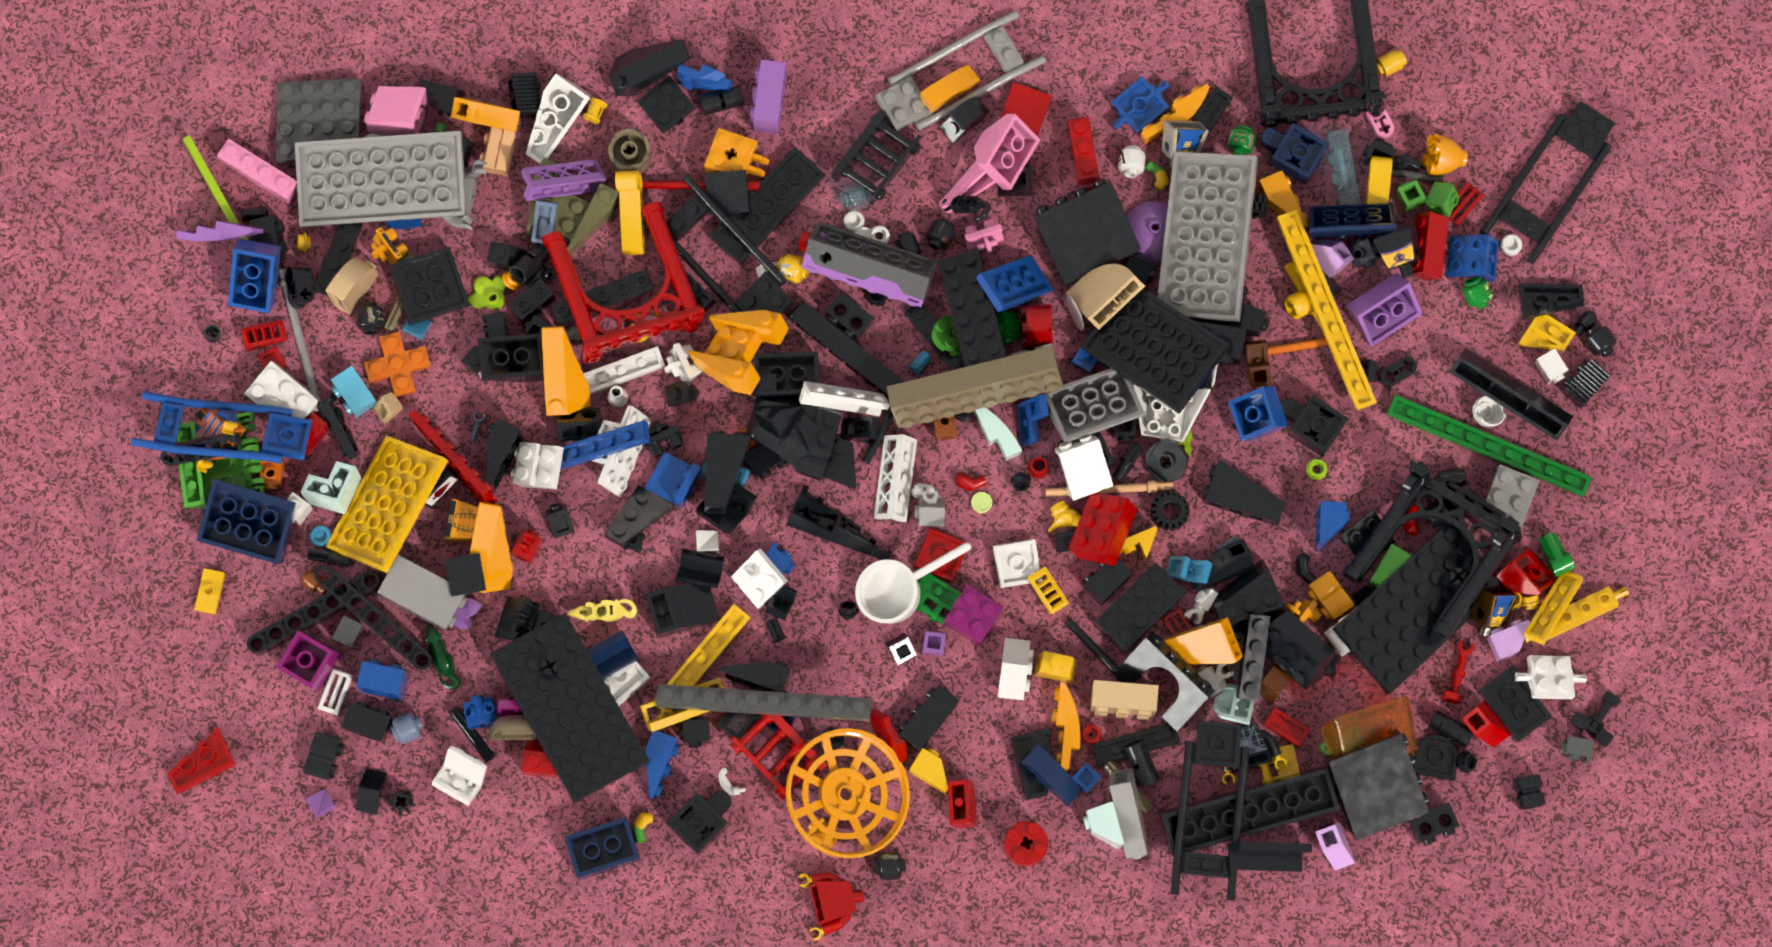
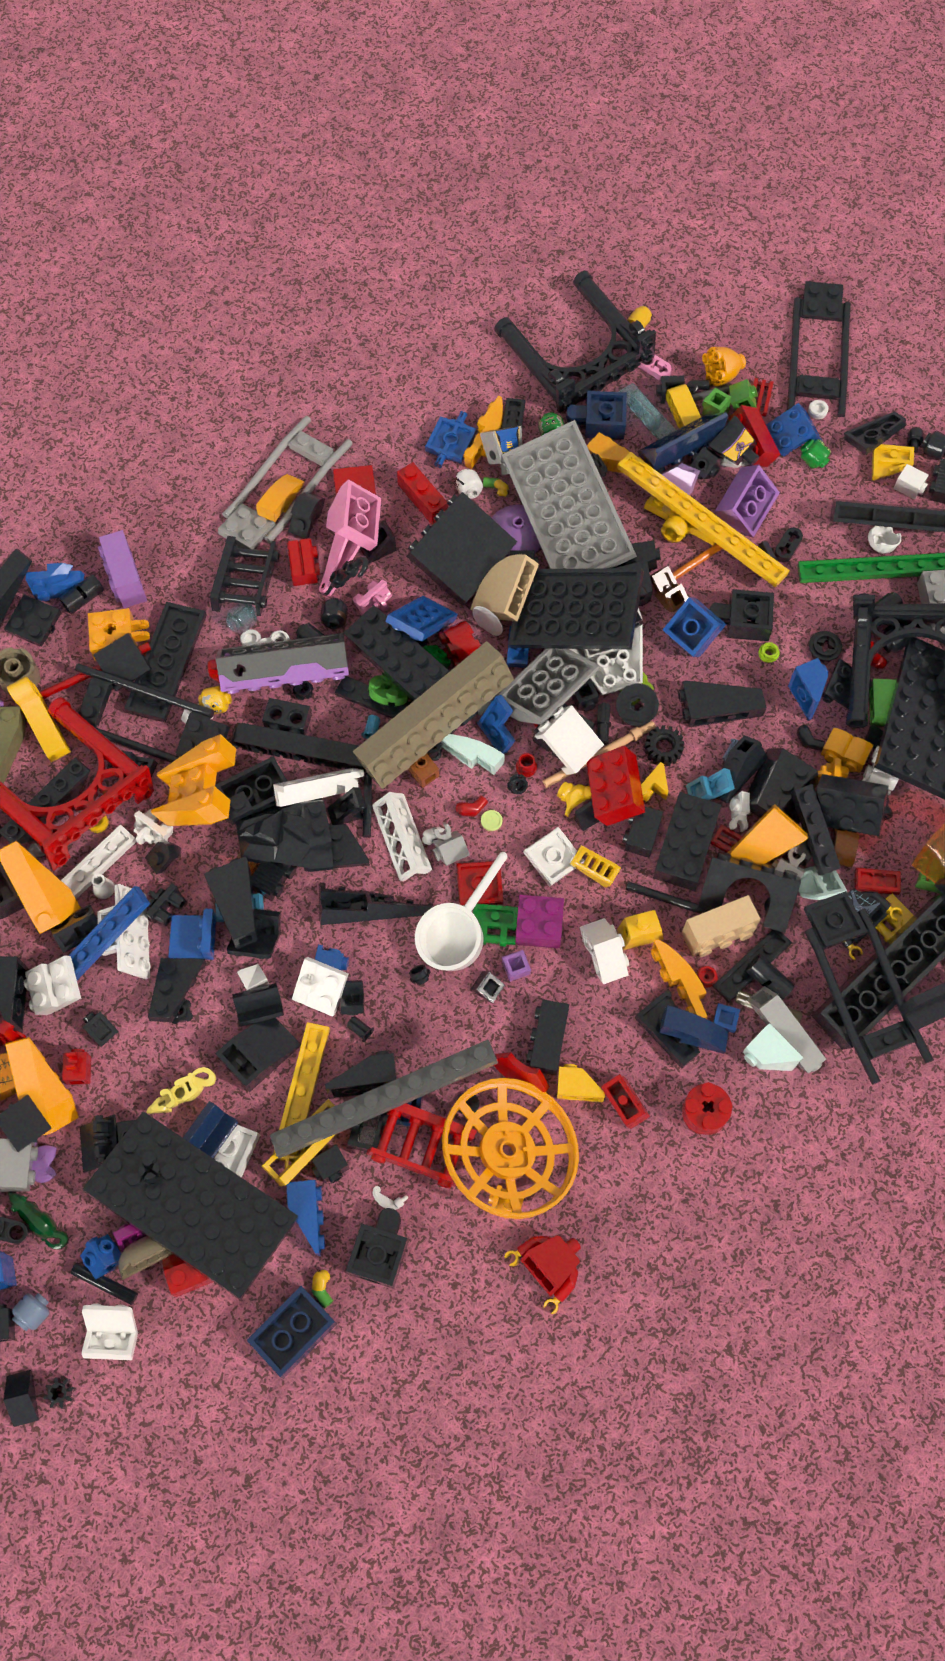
camera: 25 degrees left, 10 degrees down
(890, 865) = (587, 1199): black head -> none
(937, 167) = (302, 562): none -> red brick
(1371, 478) = (818, 640): none -> black gear

